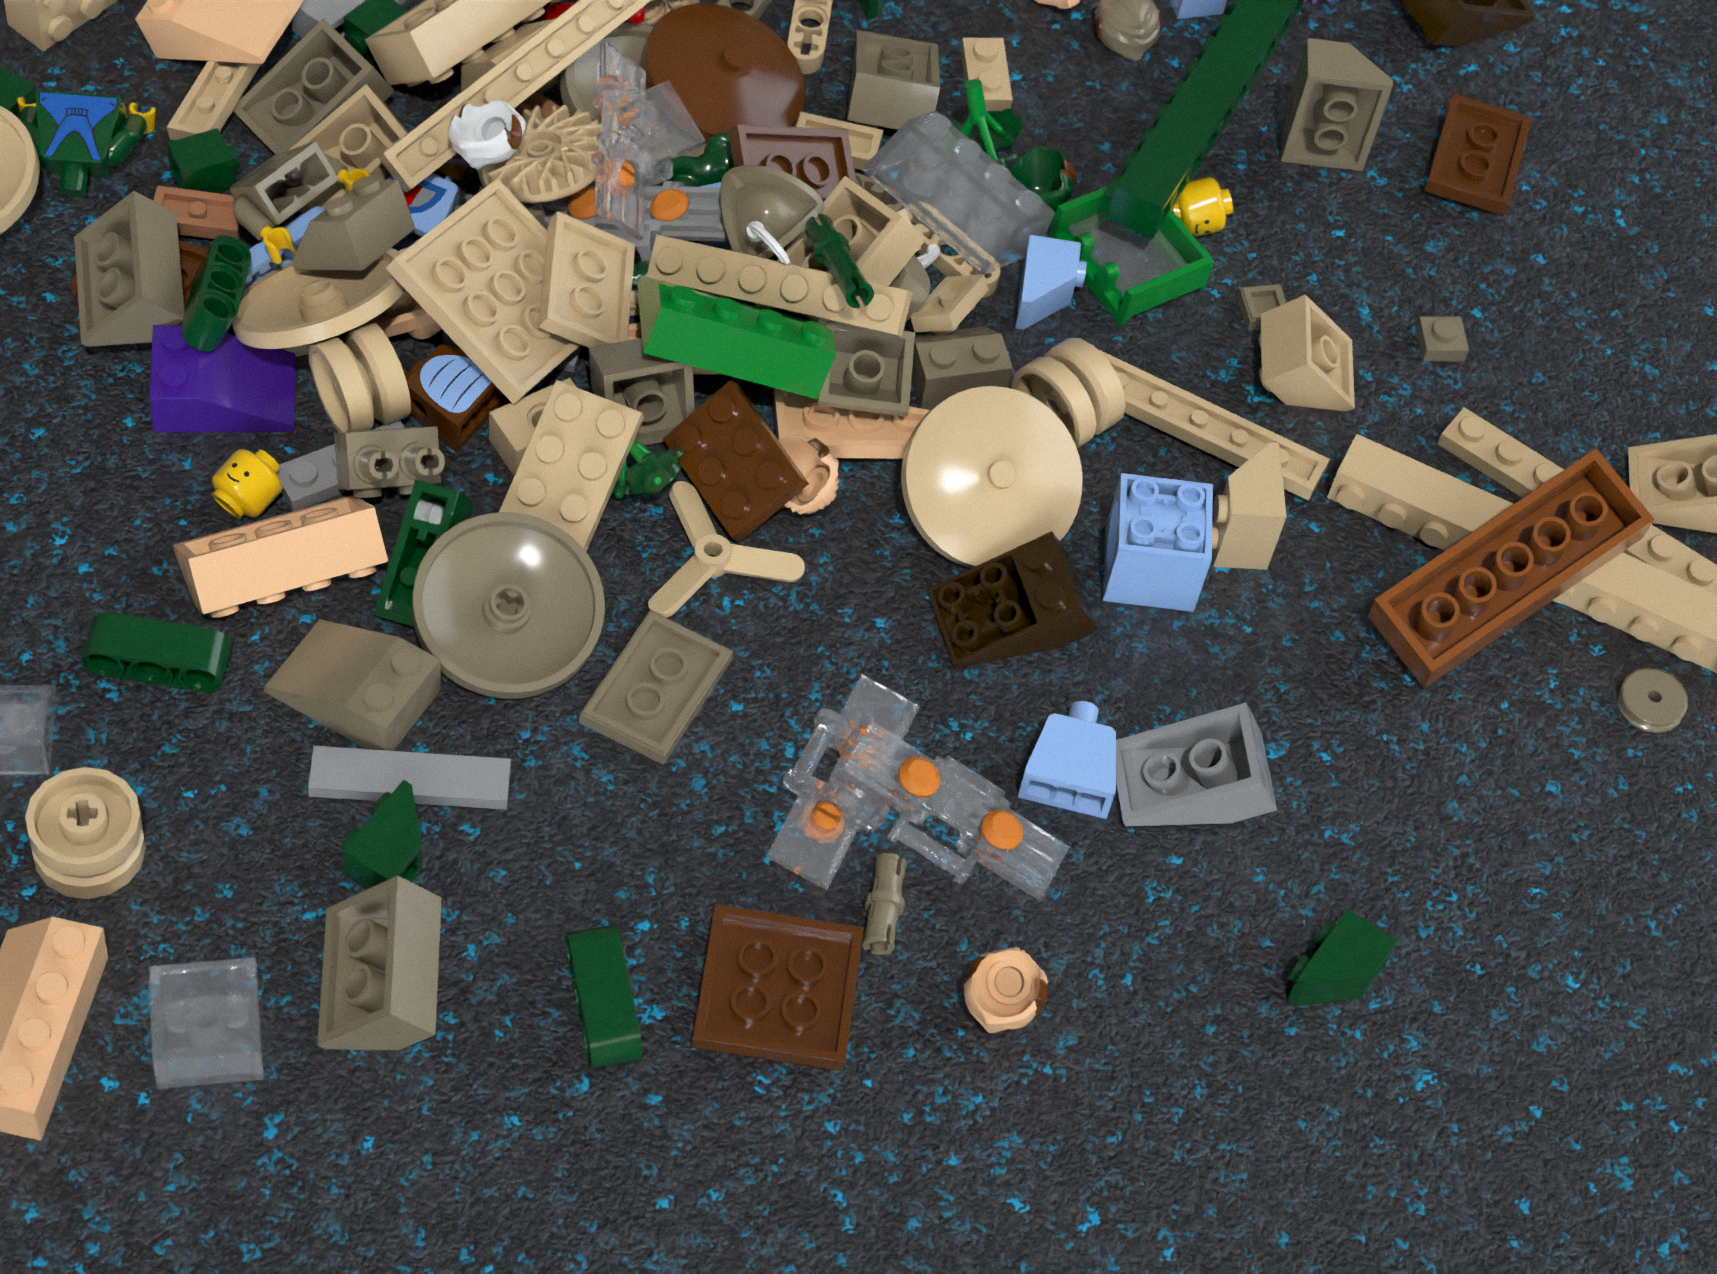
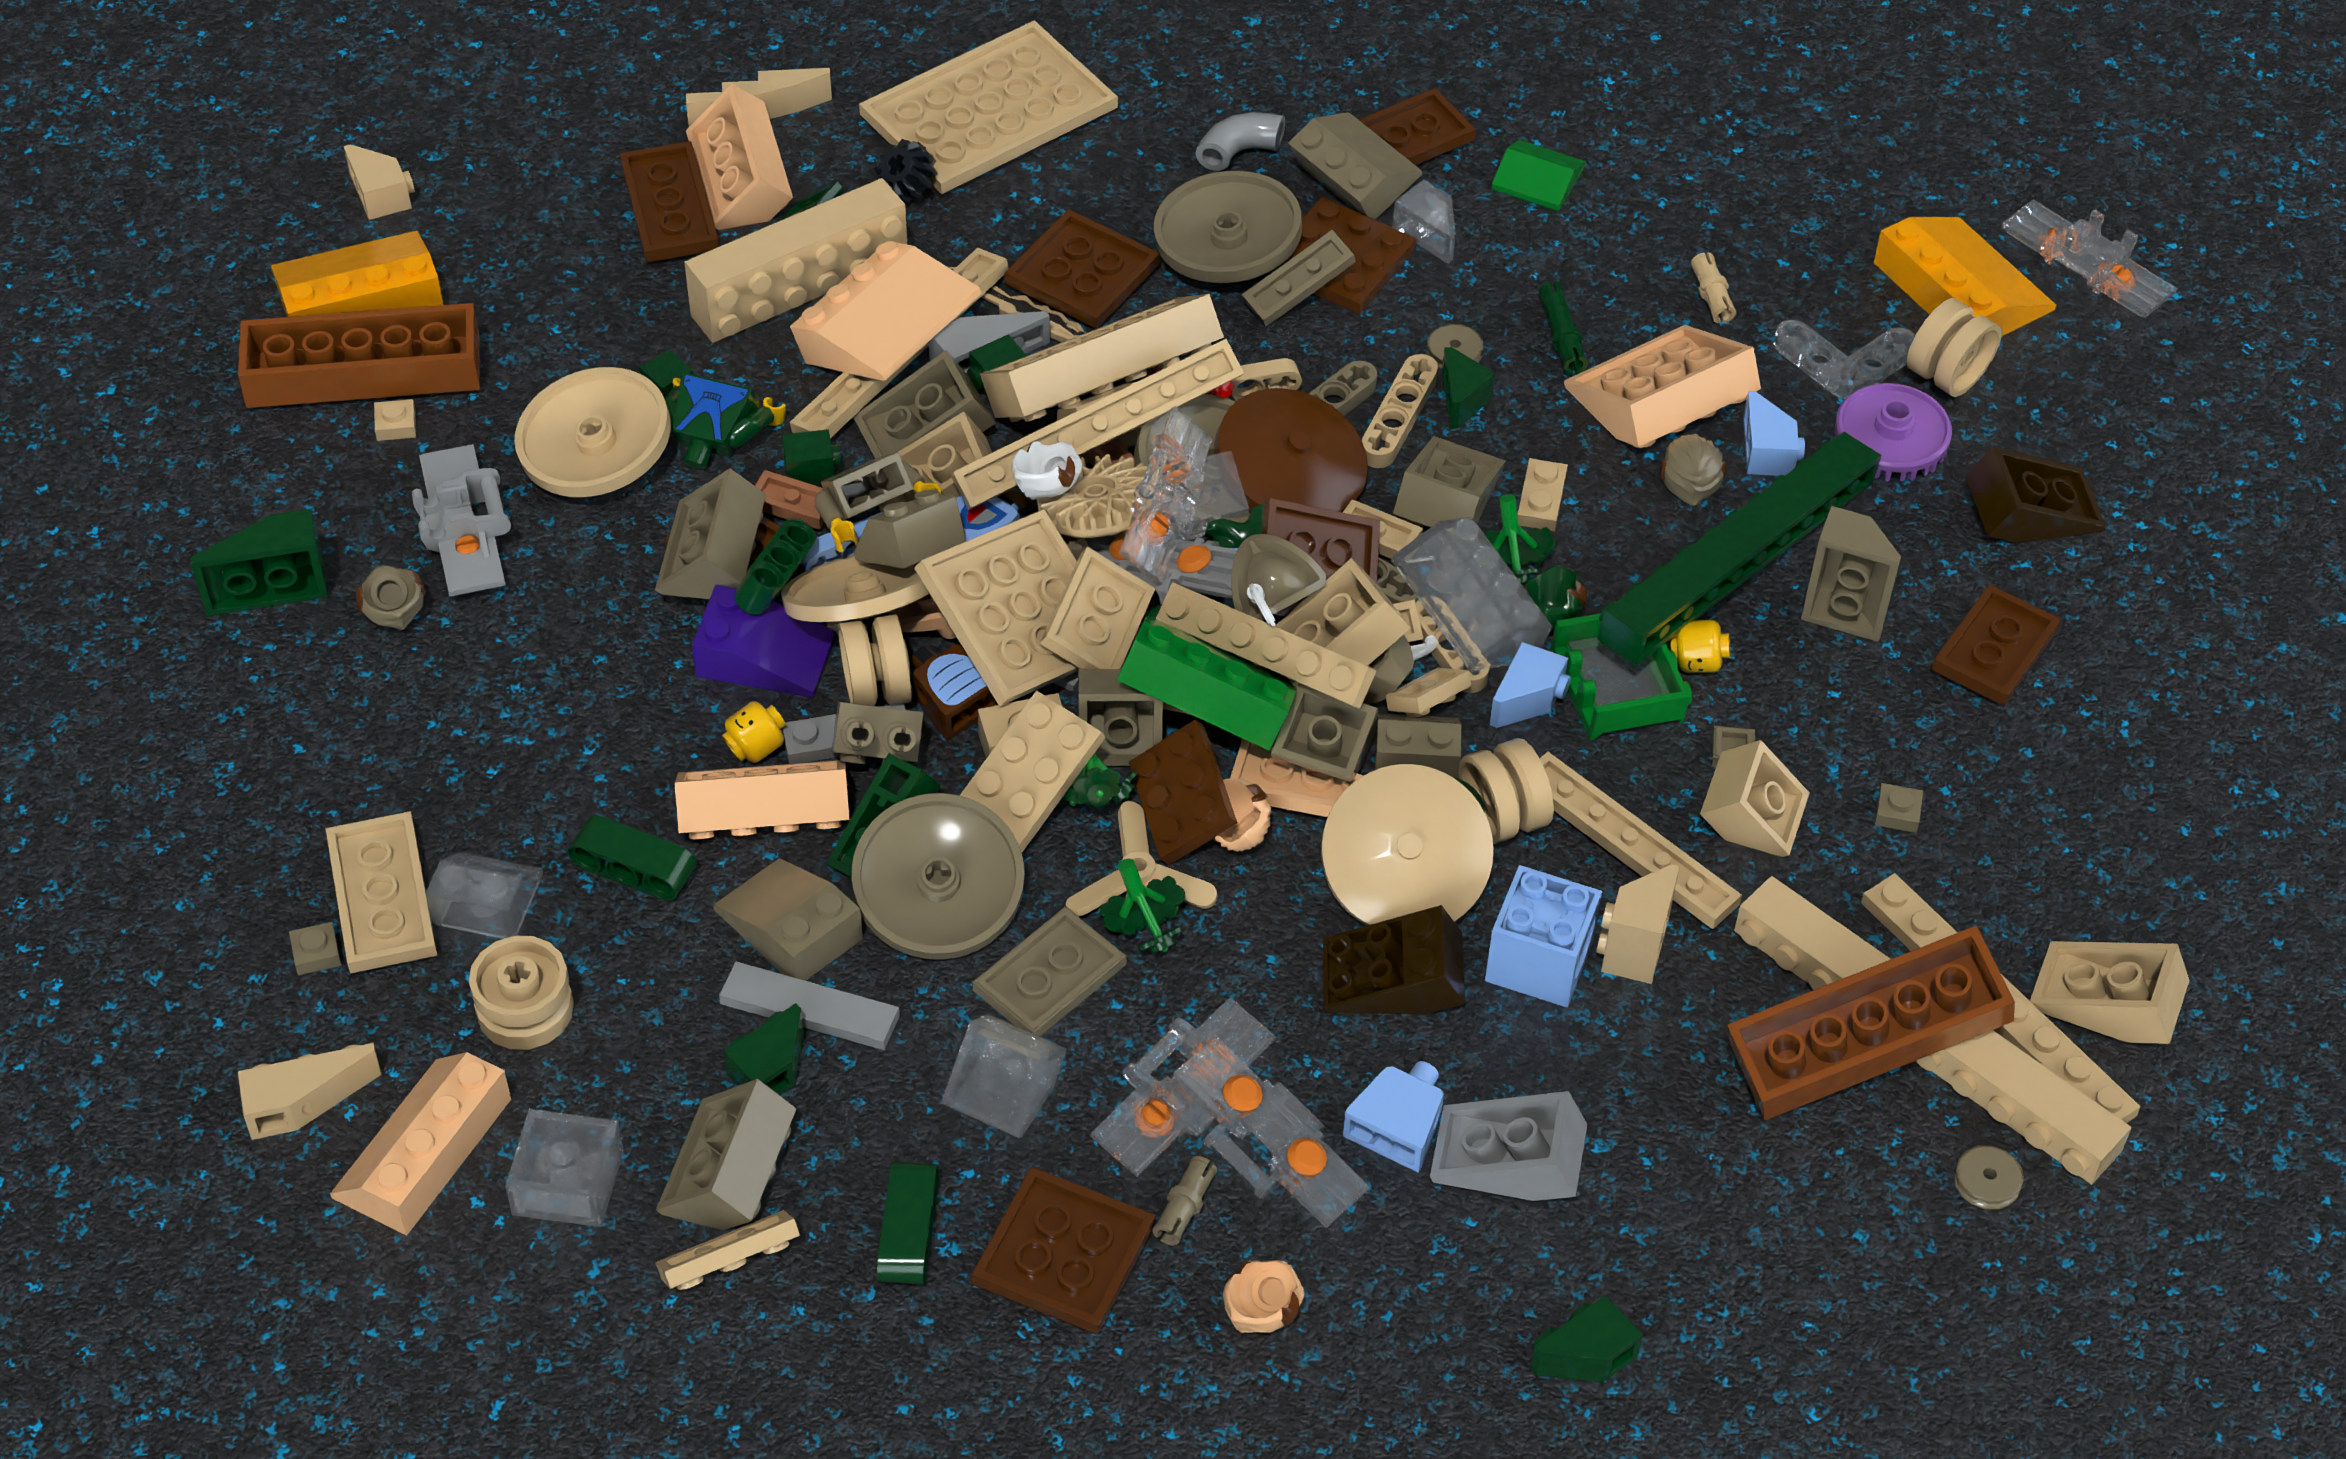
camera: 25 degrees right, 5 degrees down
(417, 1073) = (728, 1250): none -> tan plate
(649, 810) = (1002, 1074): none -> clear slope
(749, 584) = (1160, 903): none -> dark green plant
(834, 252) = (1315, 622): dark green pin -> none

